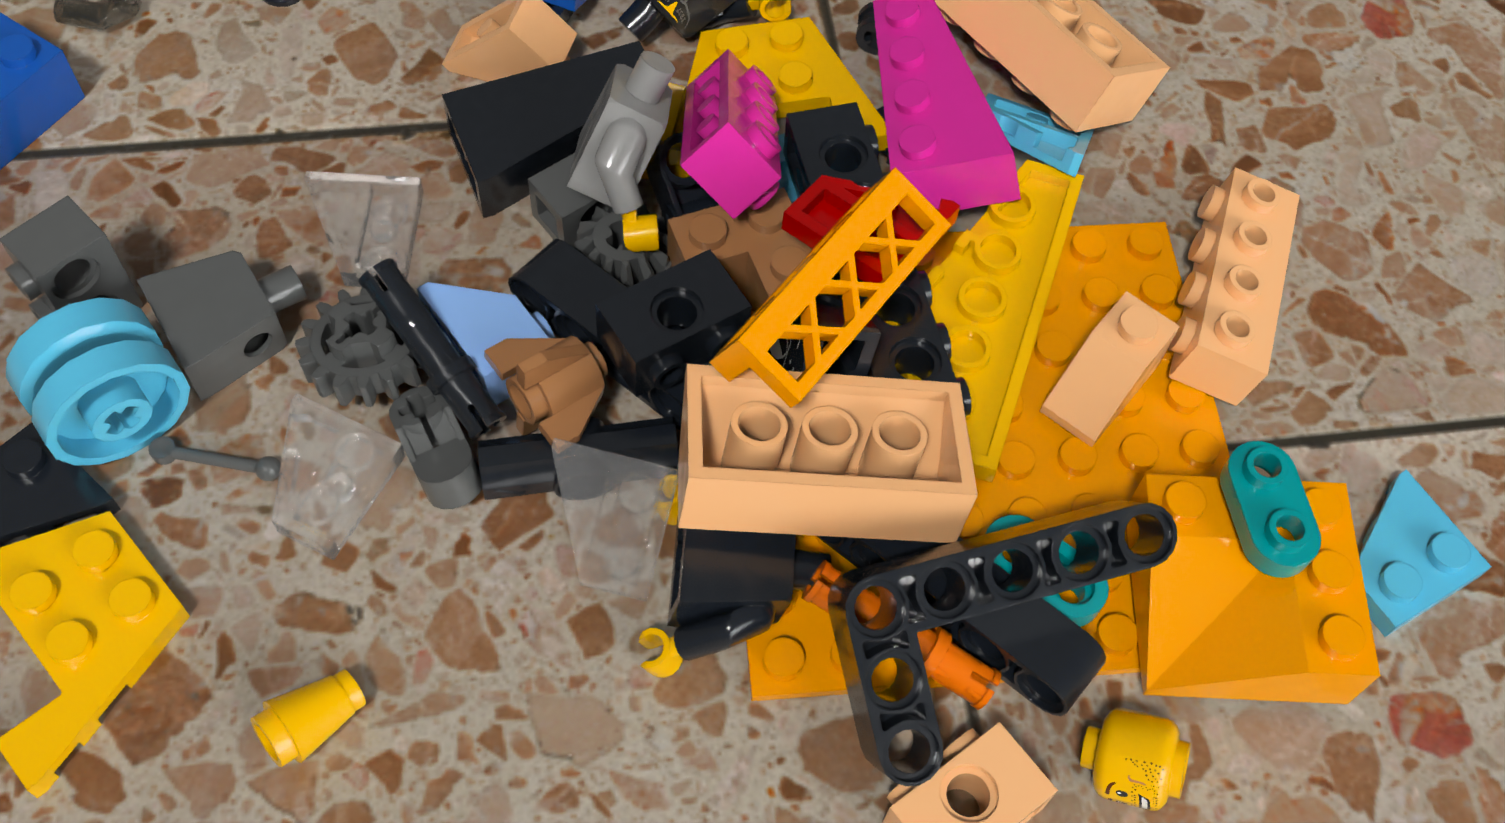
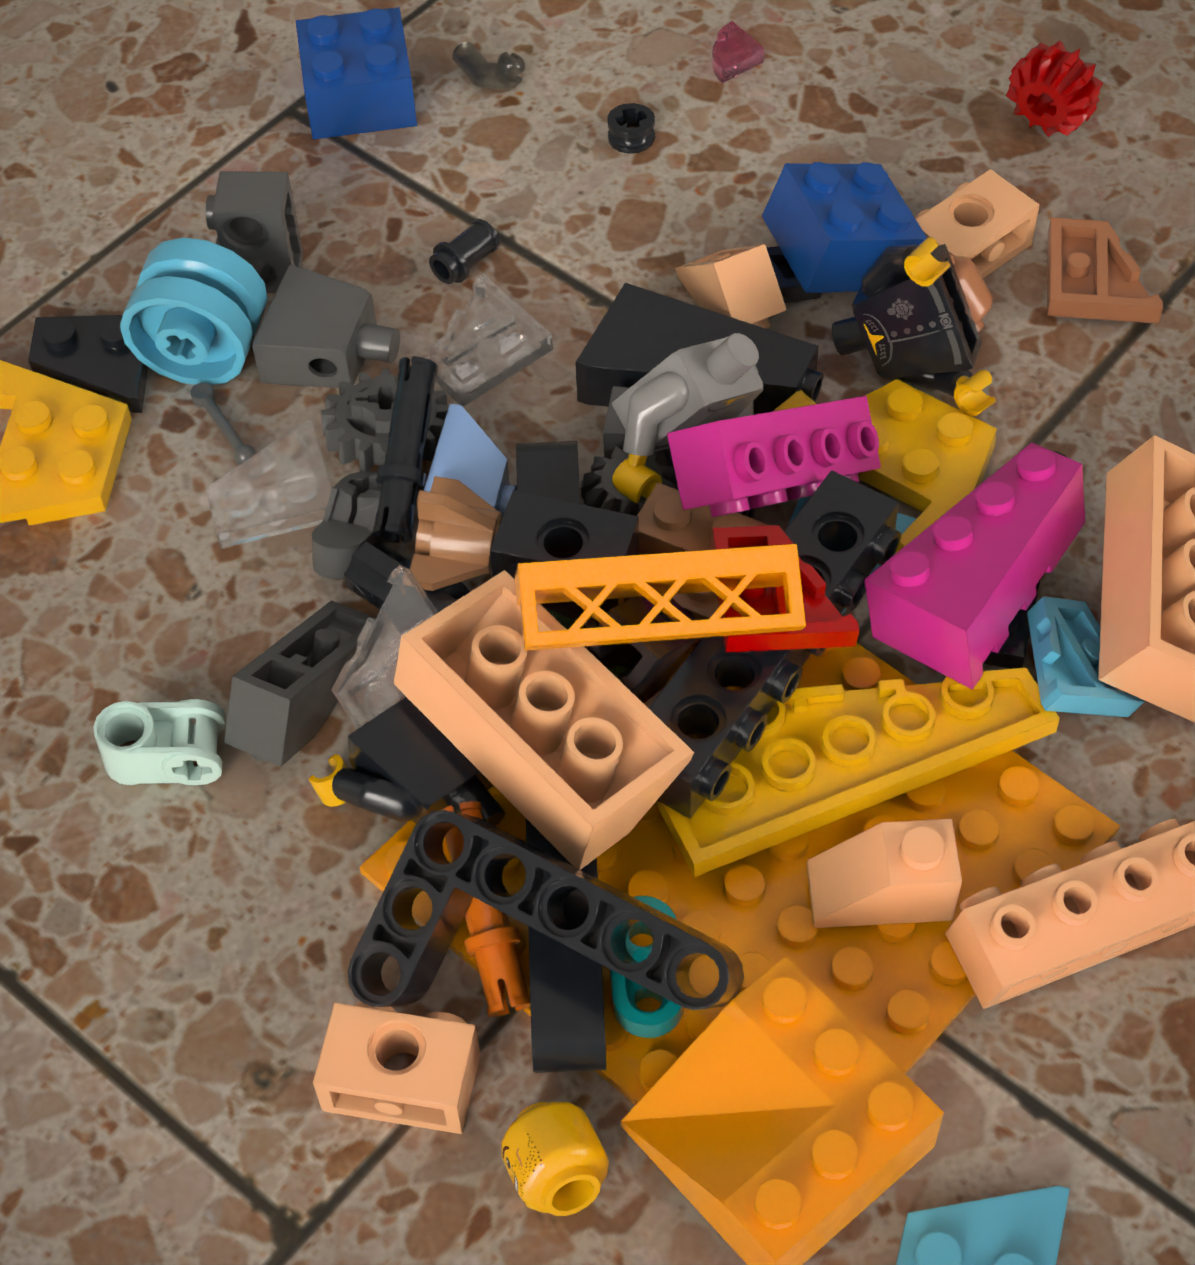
camera: 55 degrees right, 5 degrees down
(261, 175) = (454, 259): none -> black pin
(306, 717) = (87, 623): yellow cone -> none
(504, 739) = (164, 743): none -> light aqua piece
(549, 601) = (287, 690): none -> dark grey slope
(1264, 503) = (838, 1054): teal plate -> none

